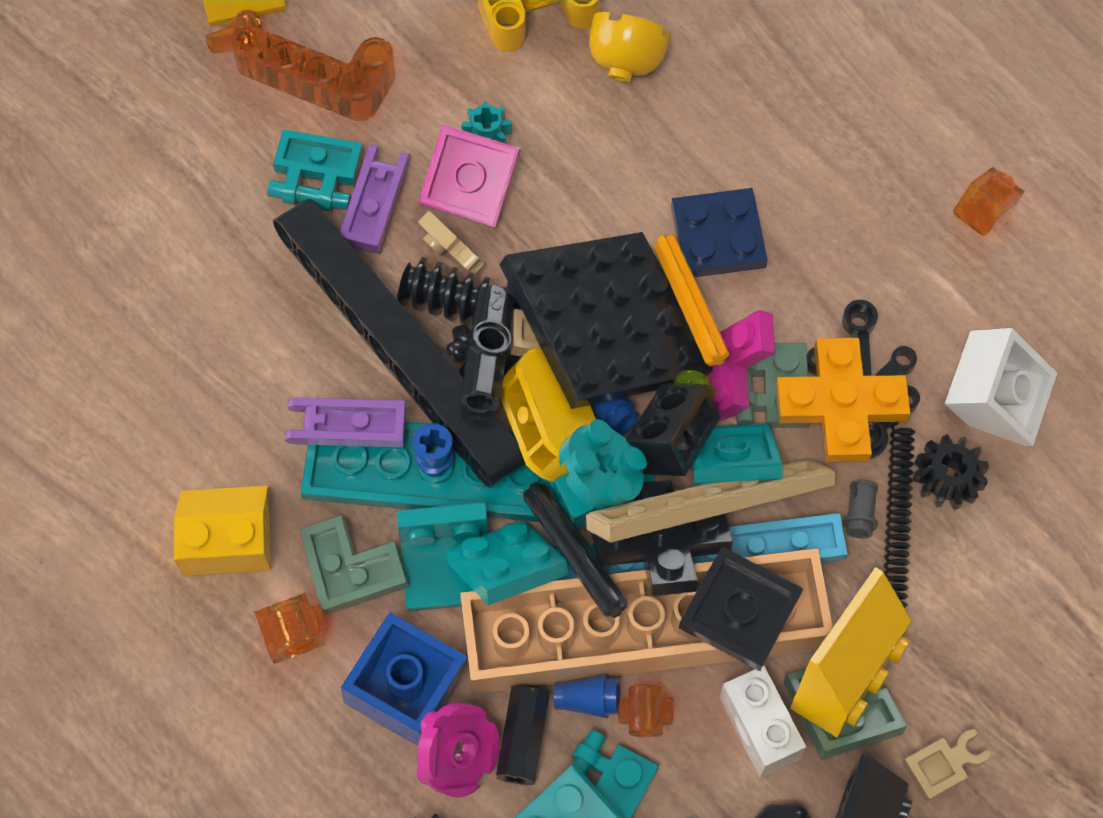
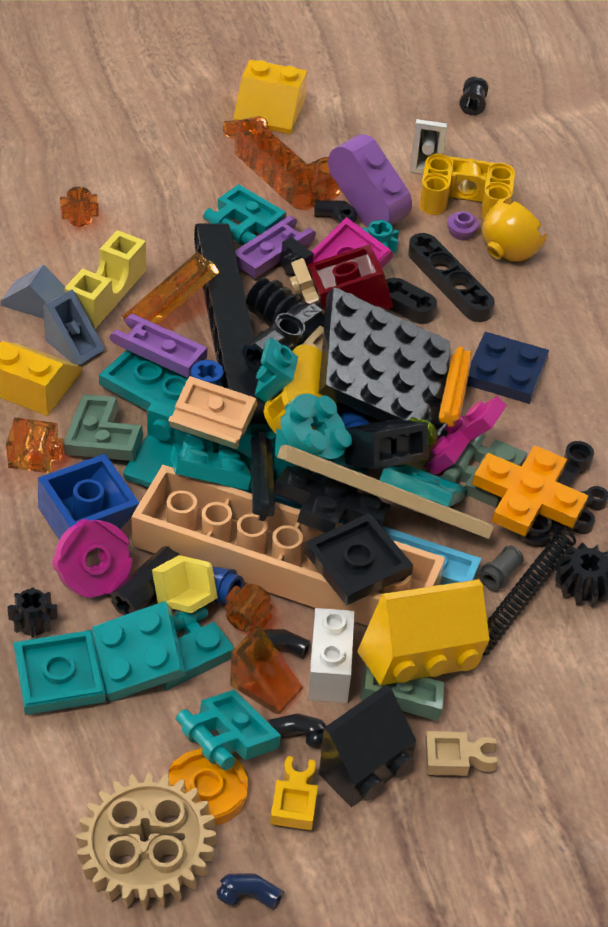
camera: 25 degrees right, 20 degrees down
(124, 270) = (79, 206): none -> clear orange gear
(157, 413) = (33, 291): none -> sand blue slope
(226, 373) = (119, 269): none -> light yellow arch
(231, 447) = (70, 329): none -> sand blue slope
(311, 338) = (174, 289): none -> clear orange tile
(411, 102) = (336, 209): none -> black arm
(411, 205) = (292, 251): none -> black plate
(438, 58) = (369, 181): none -> medium lavender brick
(476, 499) = (213, 412): none -> light nougat plate
(498, 215) = (353, 273): none -> dark red slope
(519, 414) = (276, 369): none -> teal bracket
(561, 60) = (462, 225): none -> medium lavender plate
(564, 195) = (411, 301): none -> black beam
(568, 724) = (185, 583): none -> light yellow panel
(585, 141) = (428, 252): none -> black beam
(692, 727) = (288, 642): none -> black arm
(710, 783) = (262, 672): none -> clear orange slope

